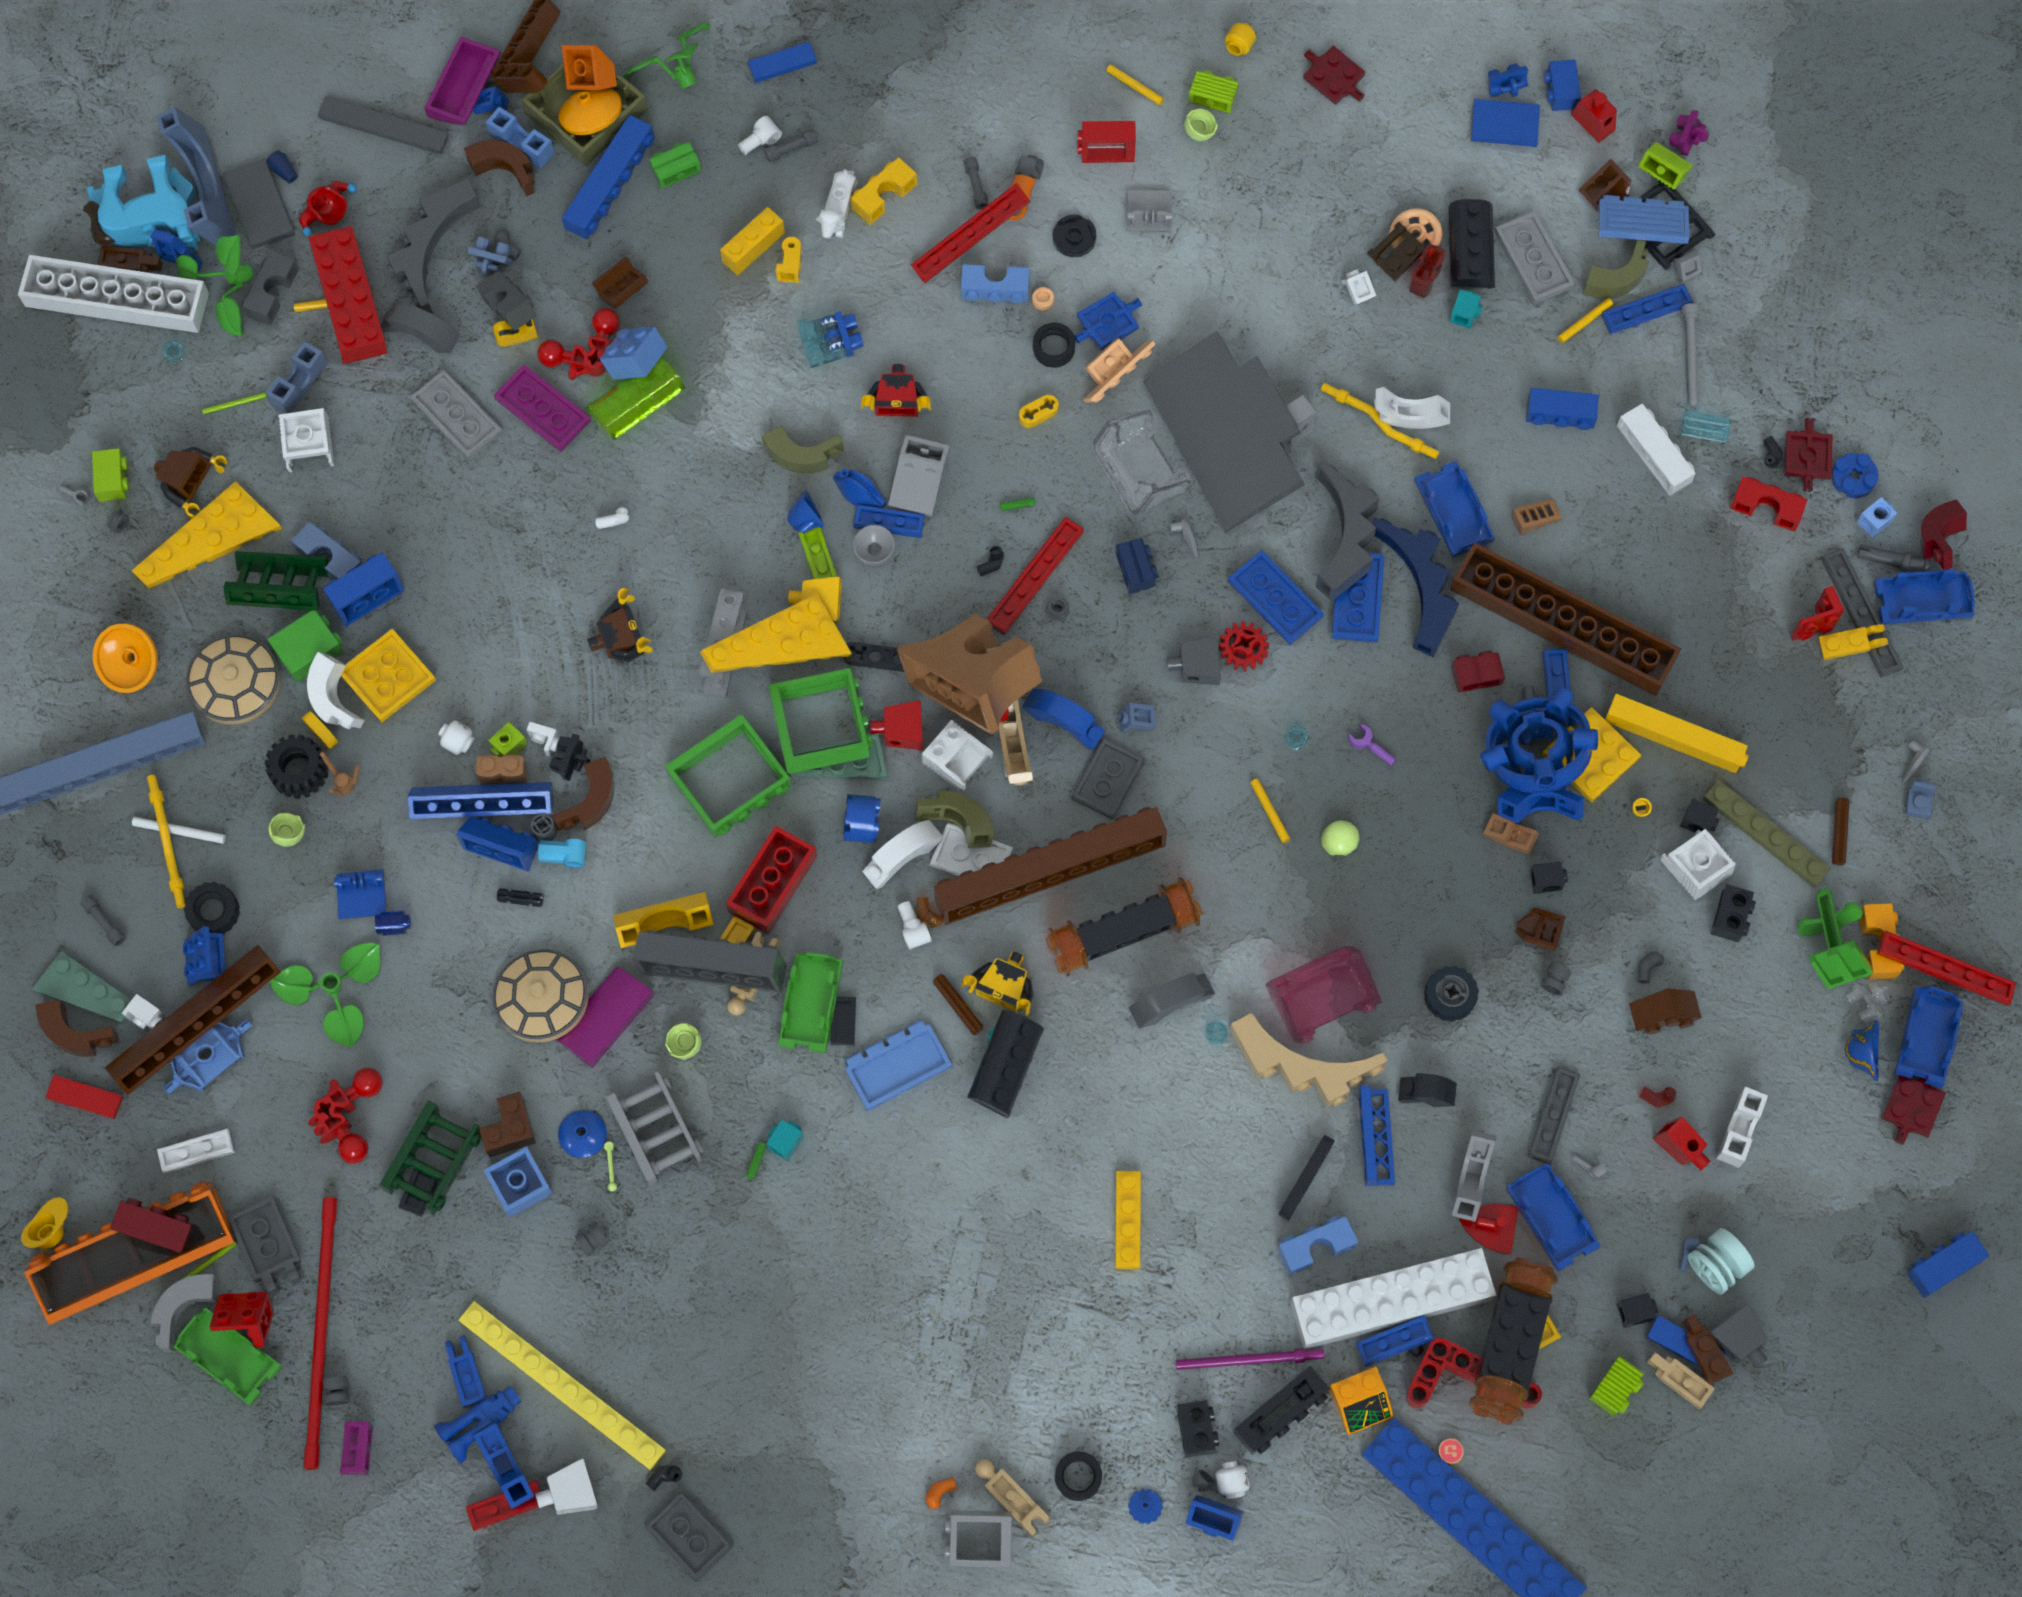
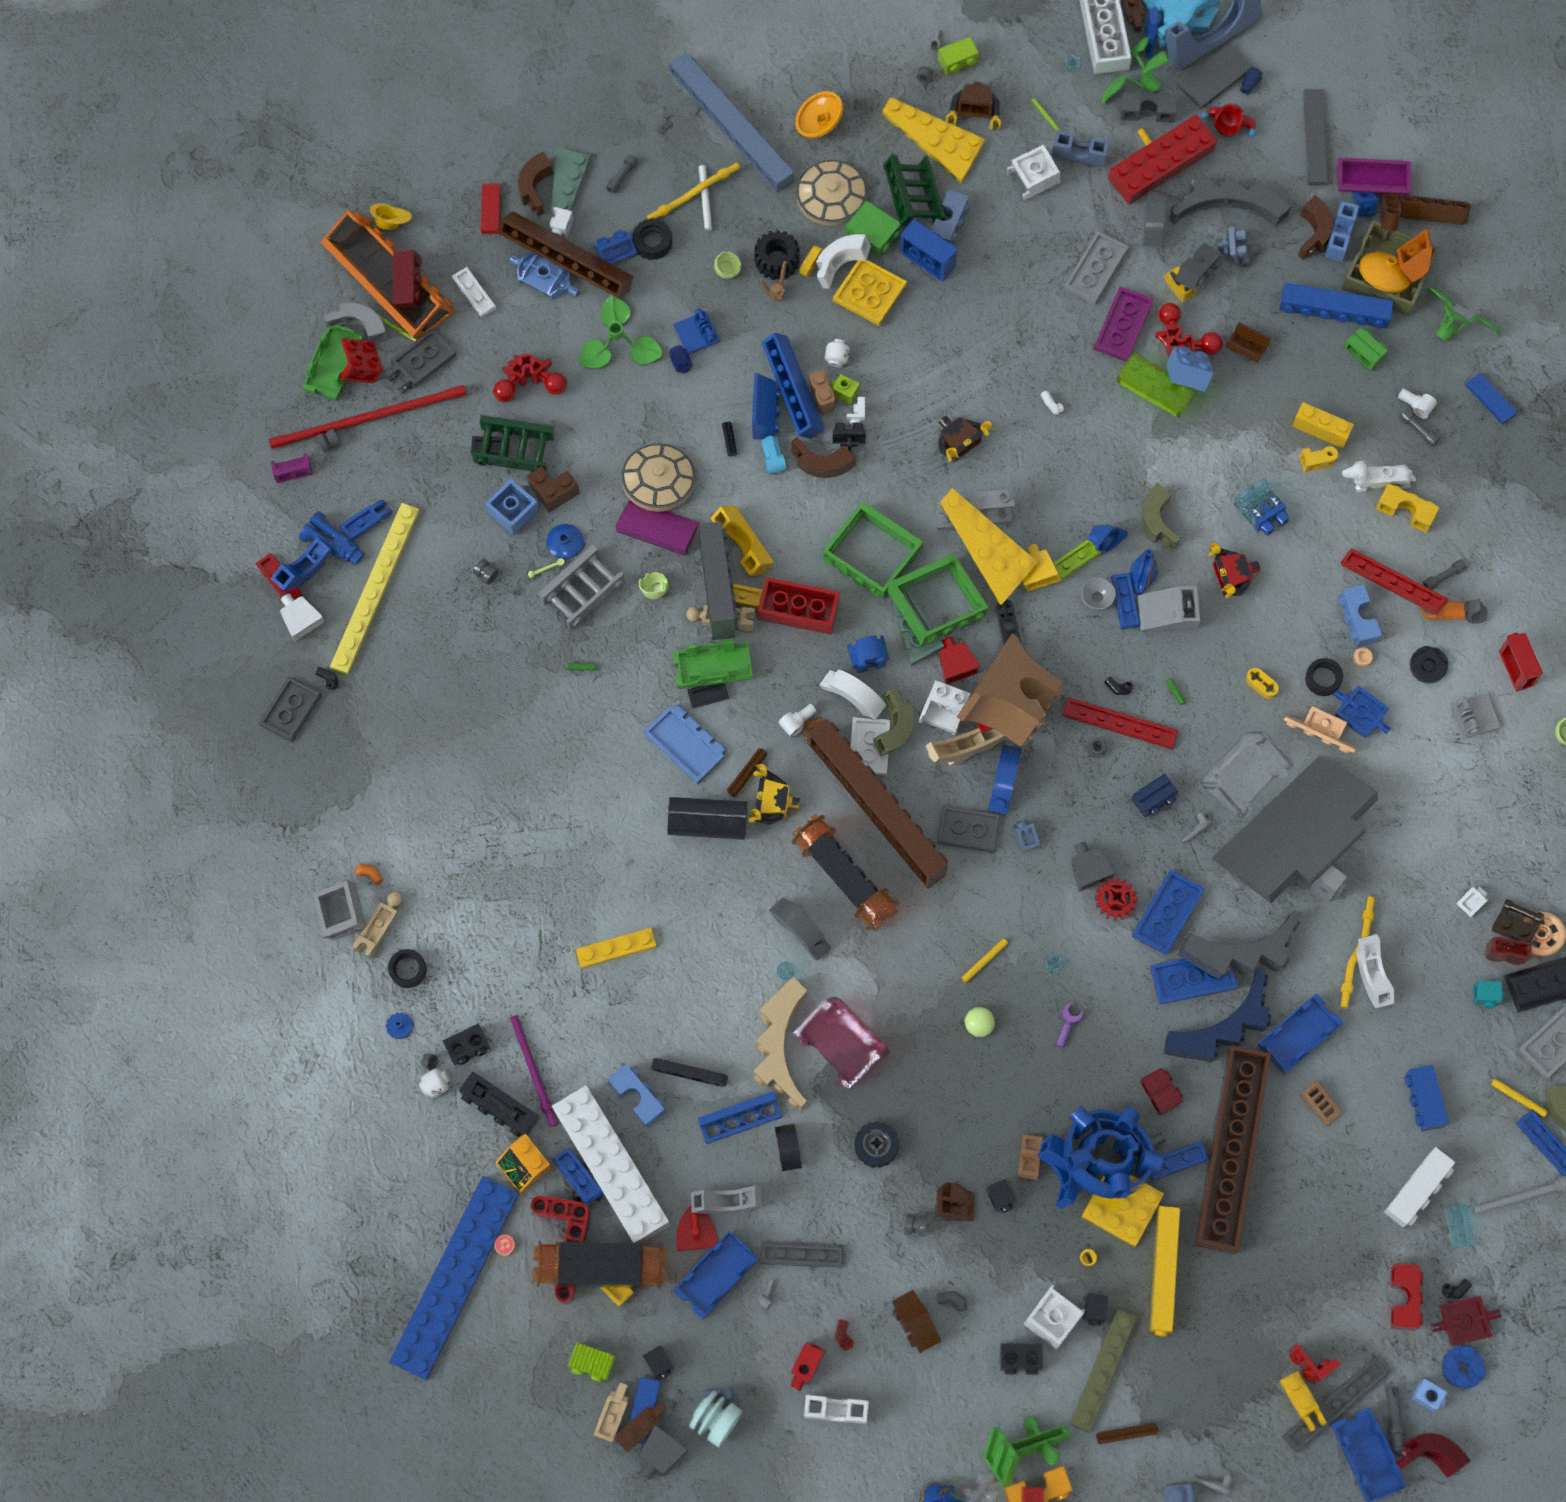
camera: 75 degrees right, 0 degrees up
(546, 831) = (784, 438): dark grey wheel -> none
(784, 1139) = (601, 680): teal brick -> none
(1214, 1517) = (401, 1076): blue brick -> none

